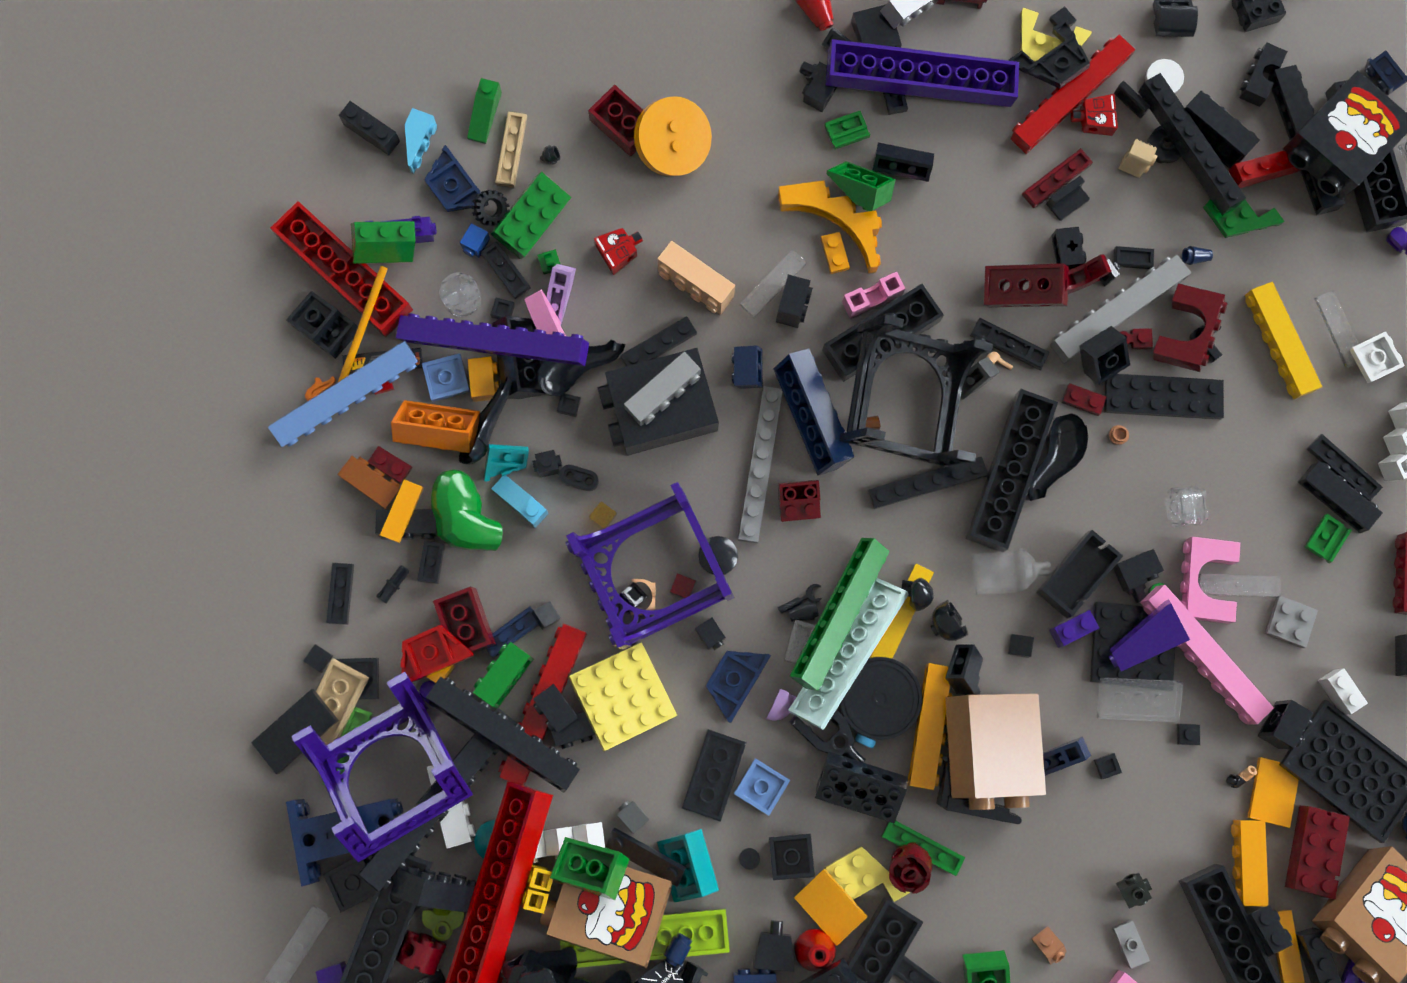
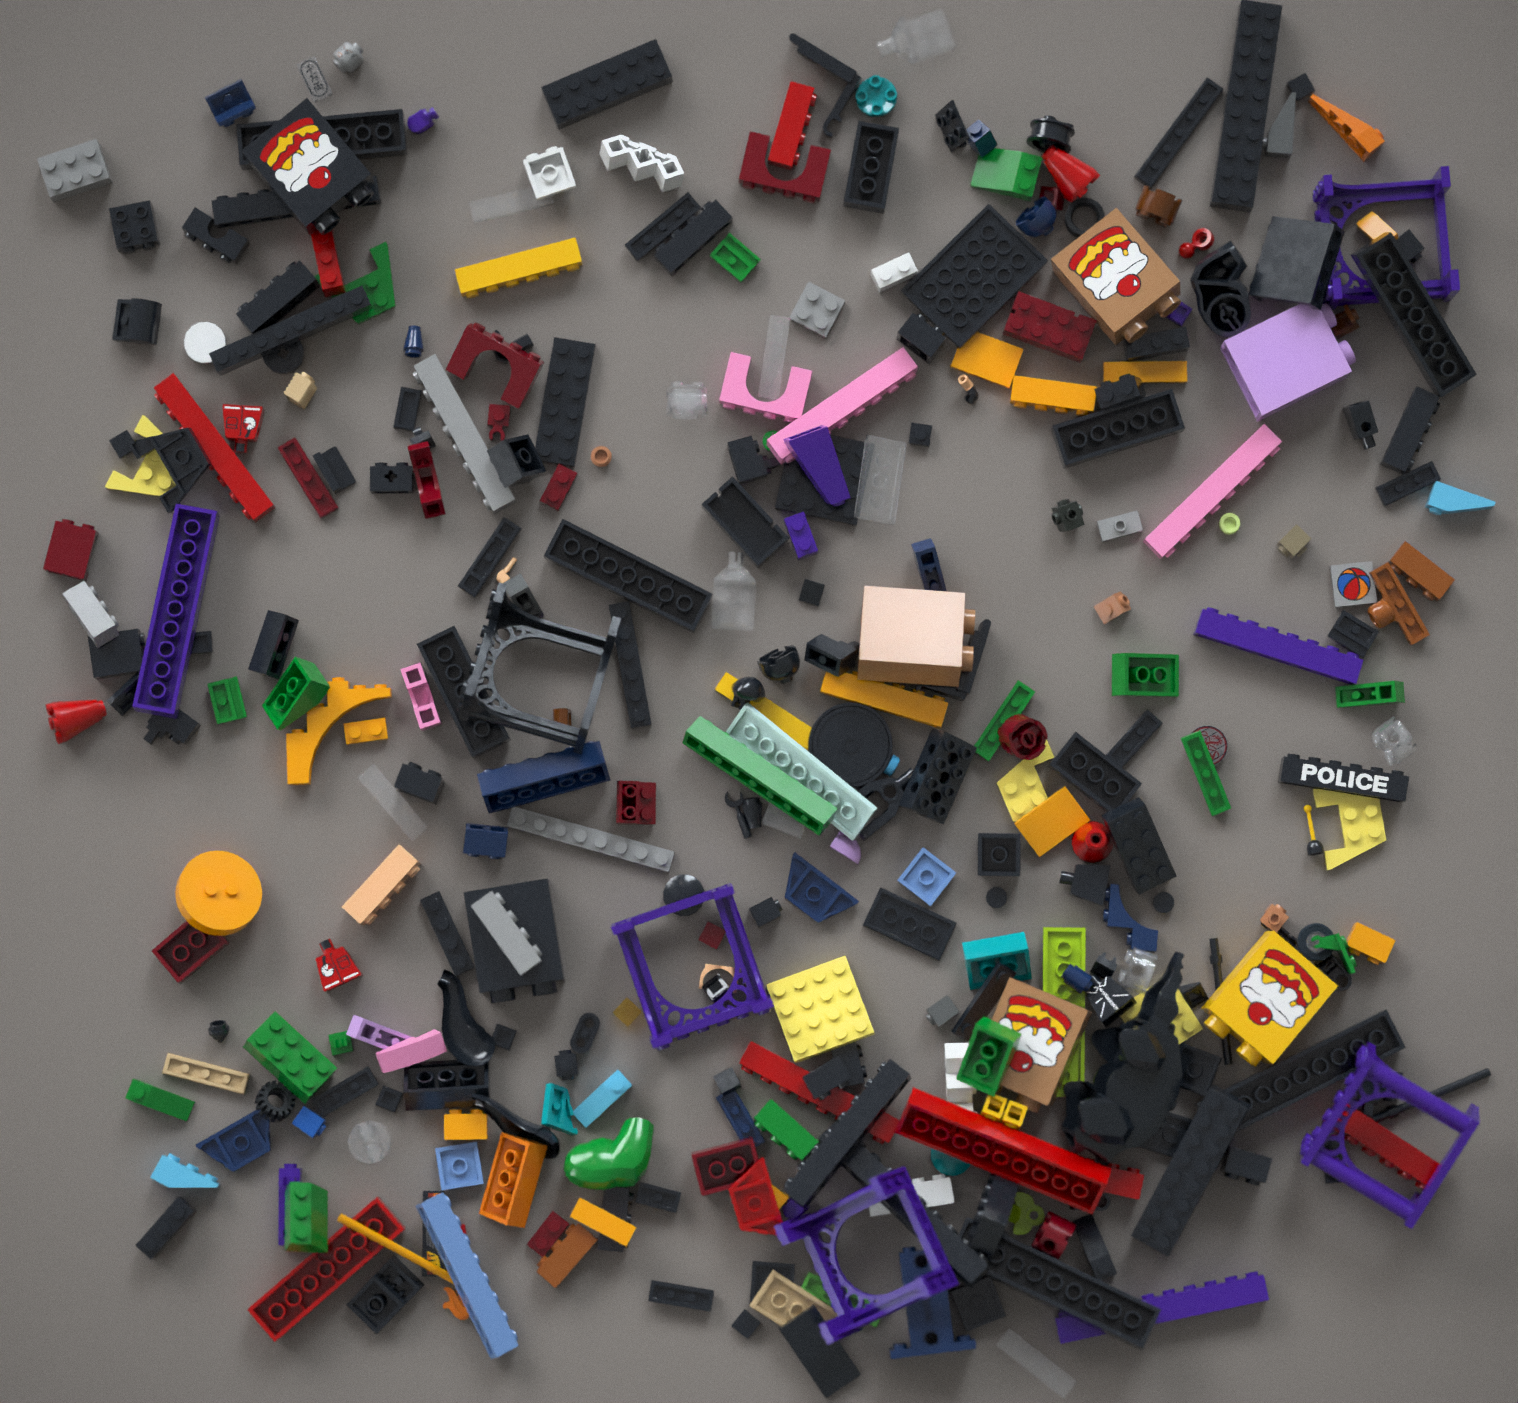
camera: 80 degrees left, 5 degrees up
(393, 584) = (677, 1239): black axle -> none
(493, 340) = (430, 1109): dark purple brick -> none
(1034, 295) = (424, 523): dark red brick -> none
(1065, 451) = (612, 515): black animal -> none
(1107, 766) = (943, 521): black tile -> none
(1132, 99) = (228, 383): black tile -> none

